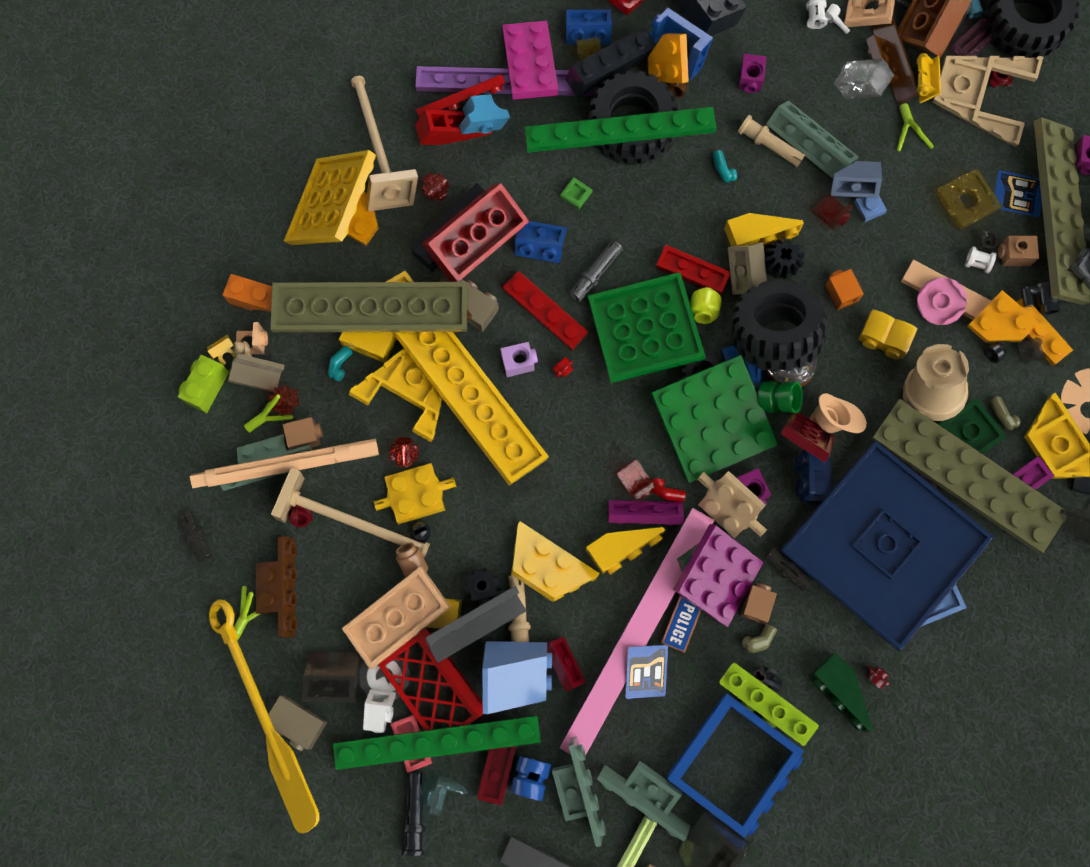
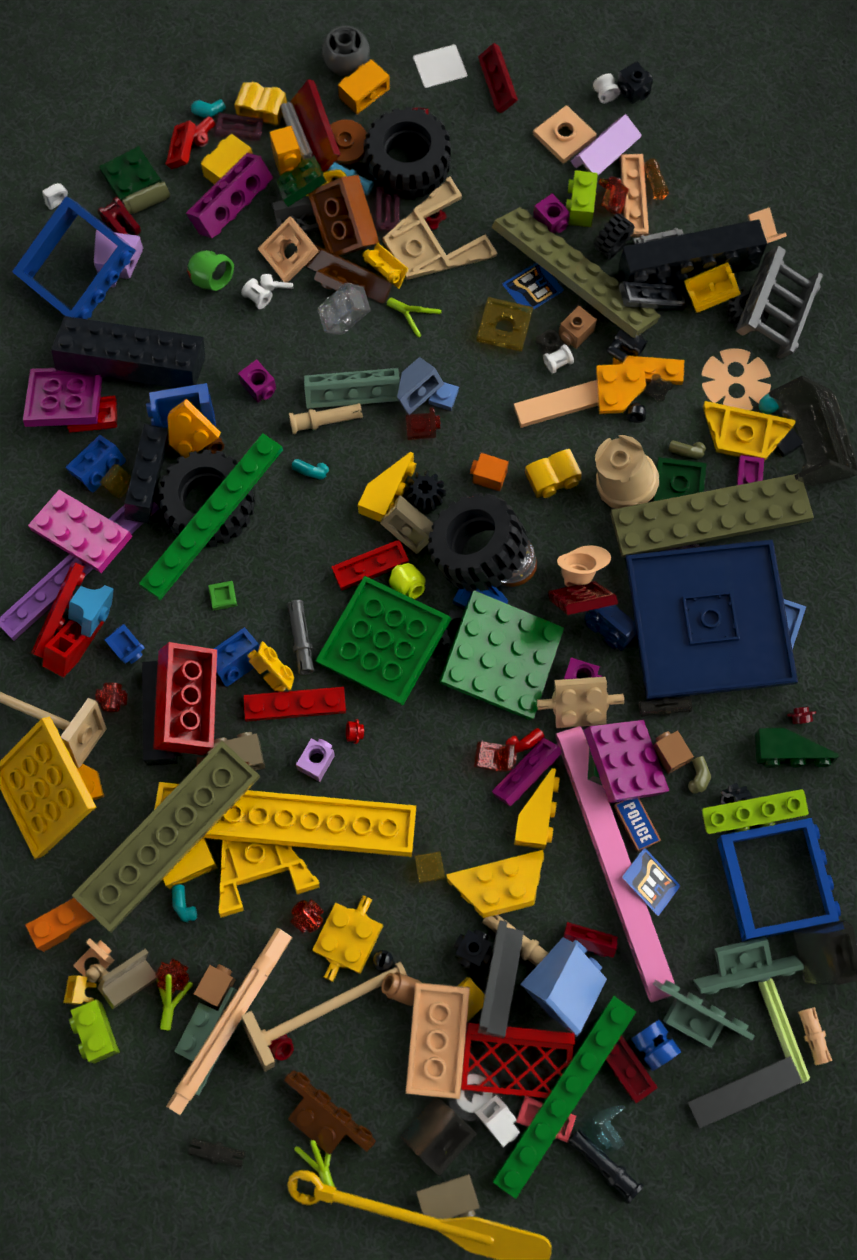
camera: 50 degrees left, 5 degrees down
(479, 161) = (124, 644): none -> blue bracket
(514, 505) = (429, 867): none -> clear yellow plate
(554, 281) = (265, 659): none -> yellow hinge
(783, 397) = (535, 588): green wheel -> none
(941, 301) = (564, 413): bright pink tile -> none

